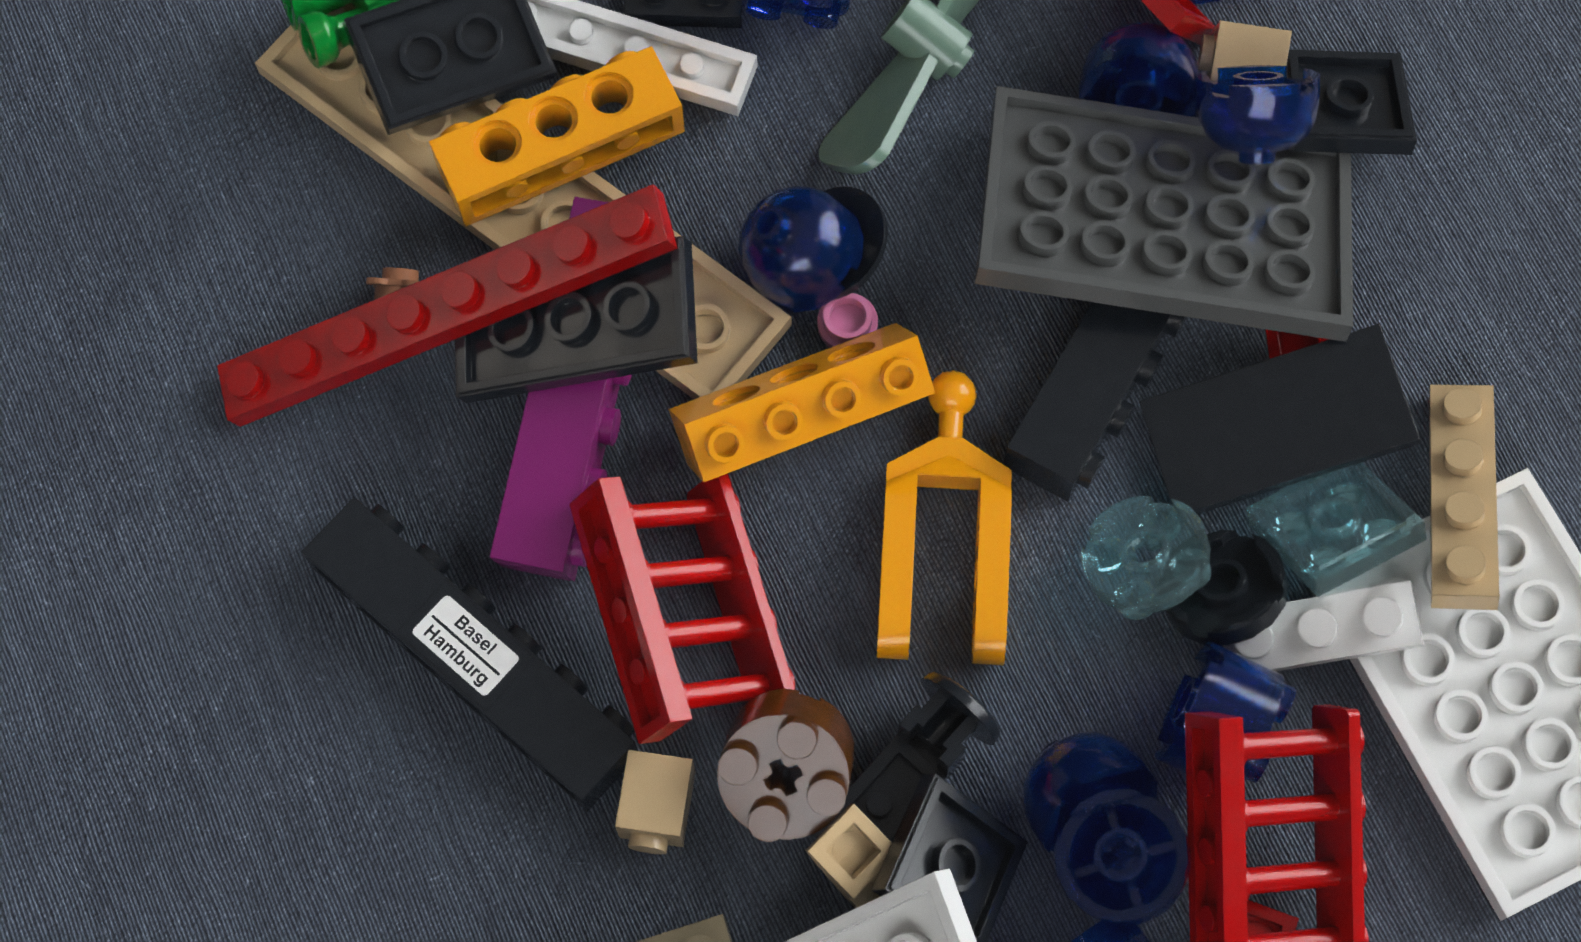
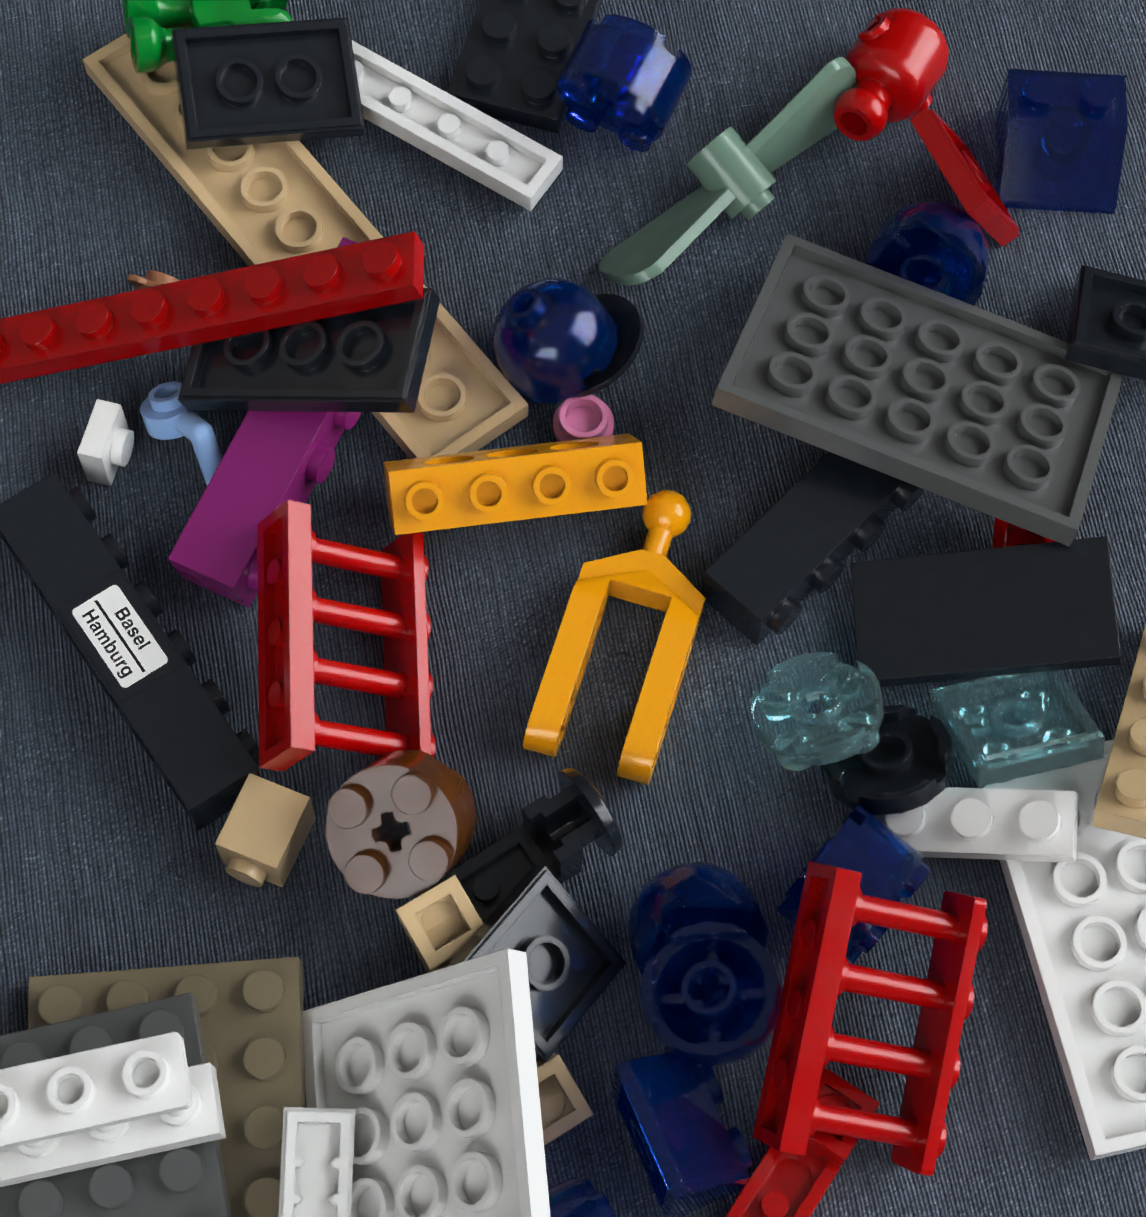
camera: 10 degrees right, 5 degrees down
(392, 452) = (105, 443): none -> white plate
(447, 415) = (169, 419): none -> light blue plate
(543, 162) = (326, 206): light orange brick -> none
(1242, 45) = (1039, 262): tan brick -> none
(1257, 109) = (1036, 308): clear blue cylinder -> none

